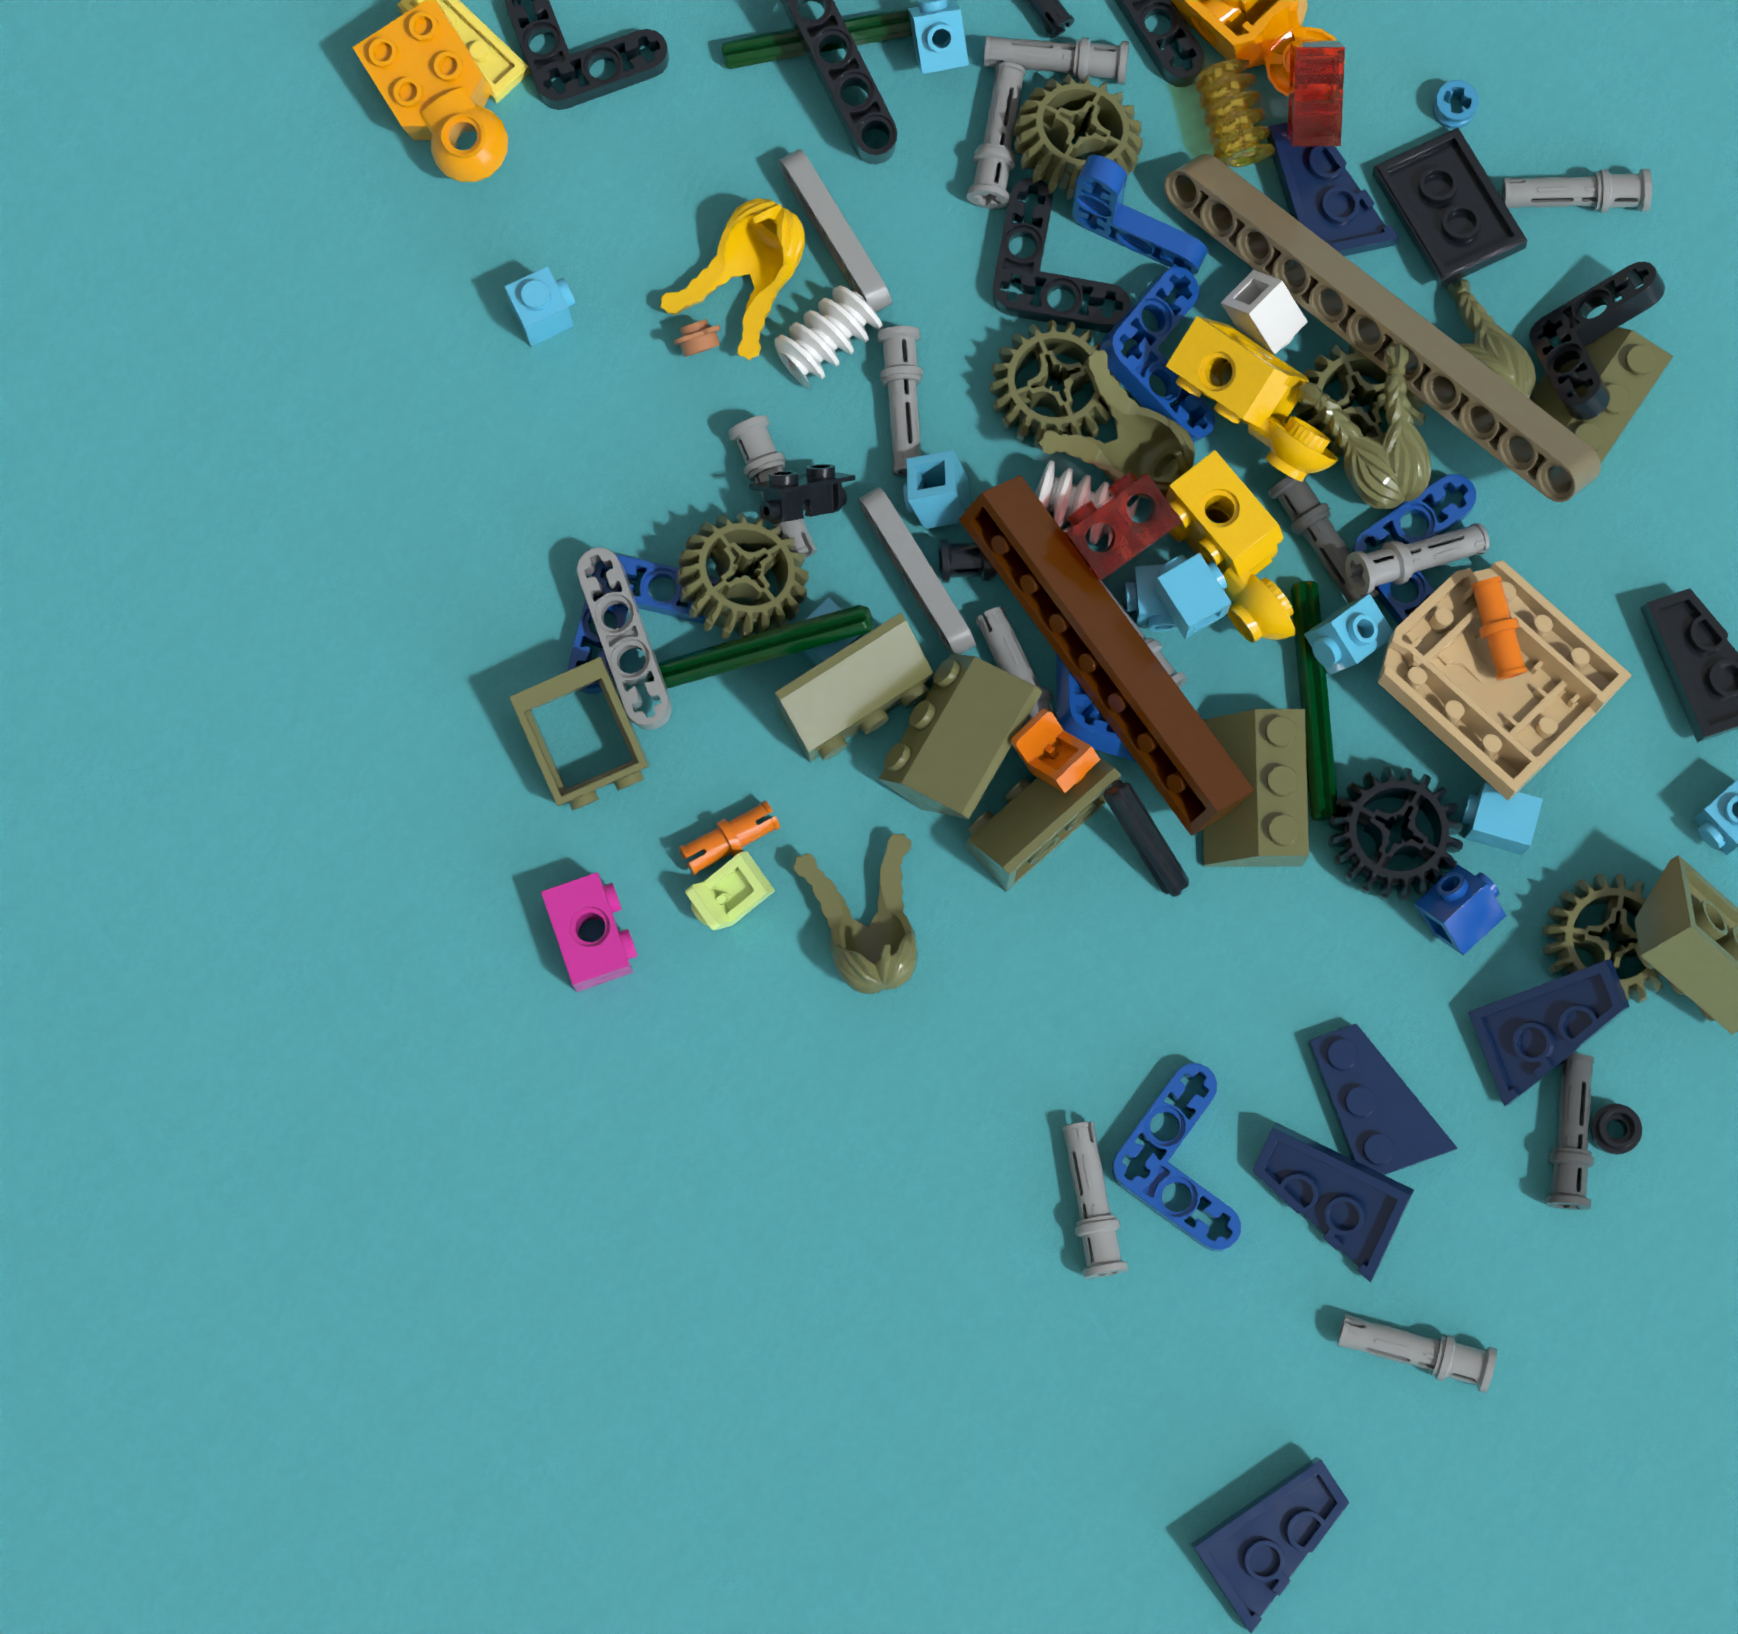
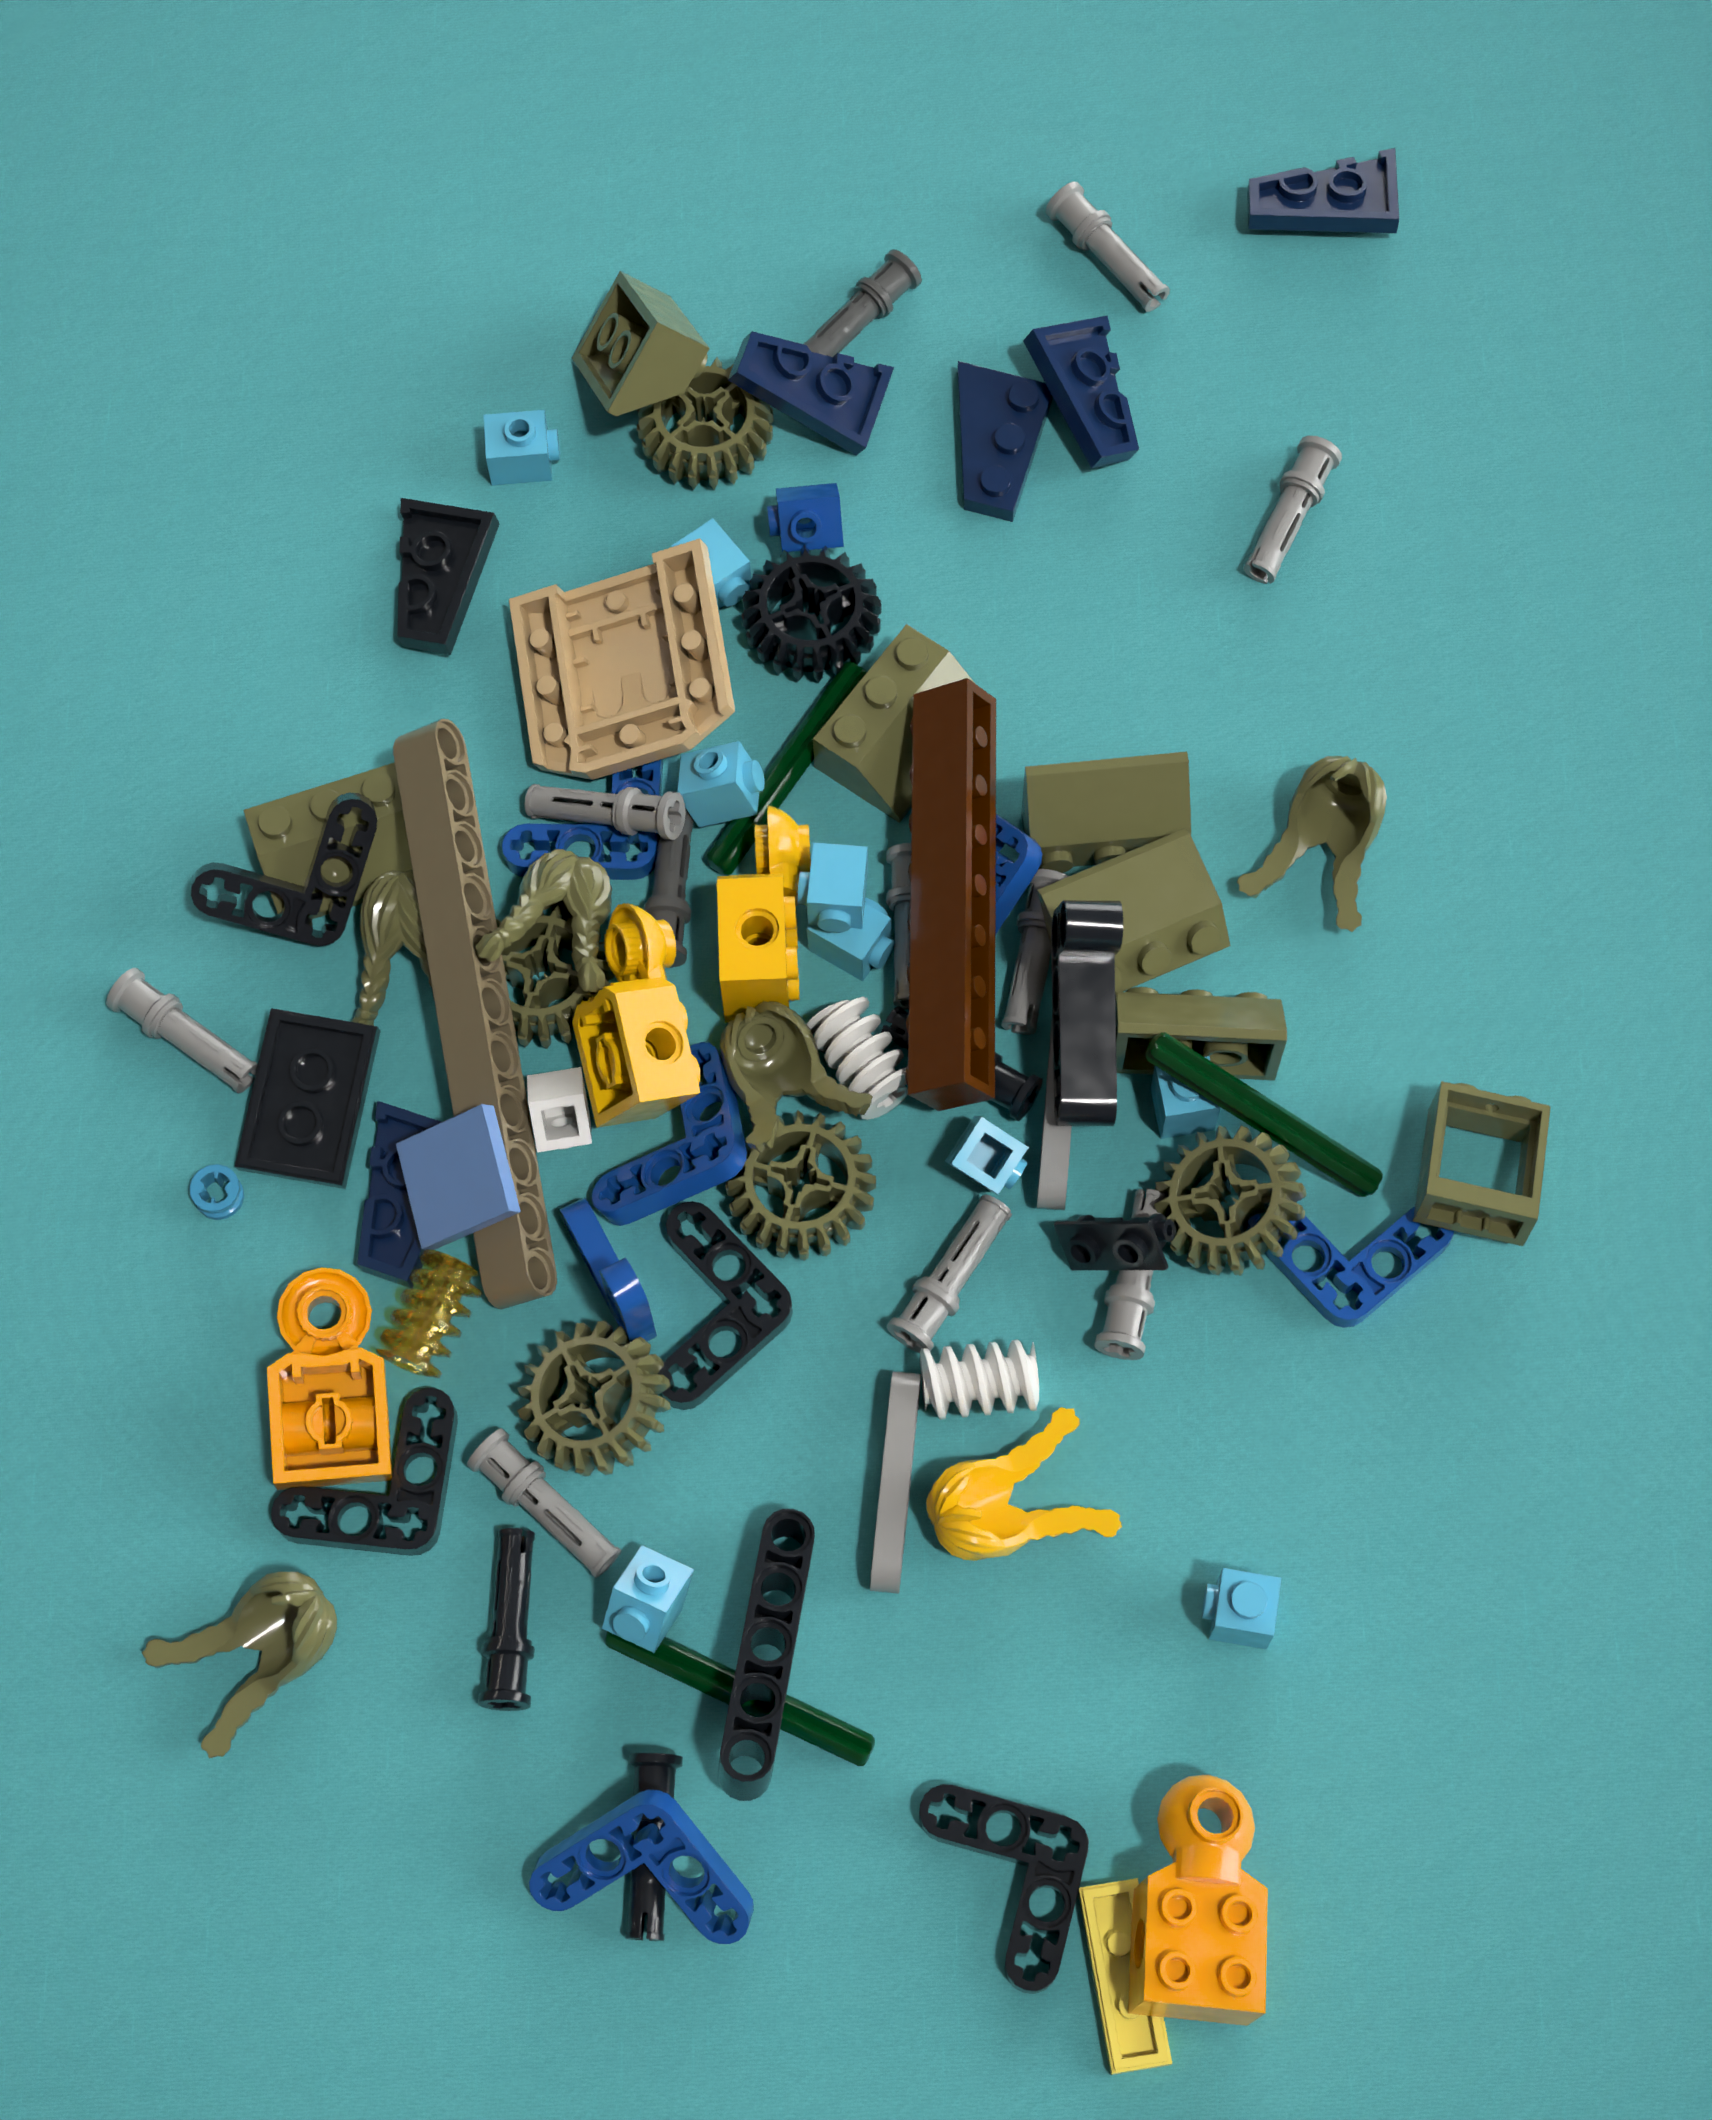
camera: 145 degrees left, 10 degrees down
(568, 909) = (1605, 969): dark pink brick -> none
(627, 637) = (1388, 1222): light grey beam -> none
(697, 338) = (1107, 1469): nougat plate -> none
(729, 837) = (1400, 993): orange pin -> none
(729, 892) = (1434, 943): yellowish green bracket -> none
(937, 616) = (1083, 1011): none -> black beam
(995, 156) = (684, 1446): light grey pin -> none
(1053, 752) = (1066, 828): orange bracket -> none
(1127, 536) = (854, 981): clear red brick -> none
(1146, 838) = (1034, 728): black axle -> none
(1163, 1173) = (1213, 500): blue beam -> none
(1286, 198) = (458, 1177): none -> medium blue tile
(1315, 93) = (349, 1250): clear red brick -> none
(1499, 628) = (591, 693): orange pin -> none
(1627, 1118) = (814, 287): black plate -> none

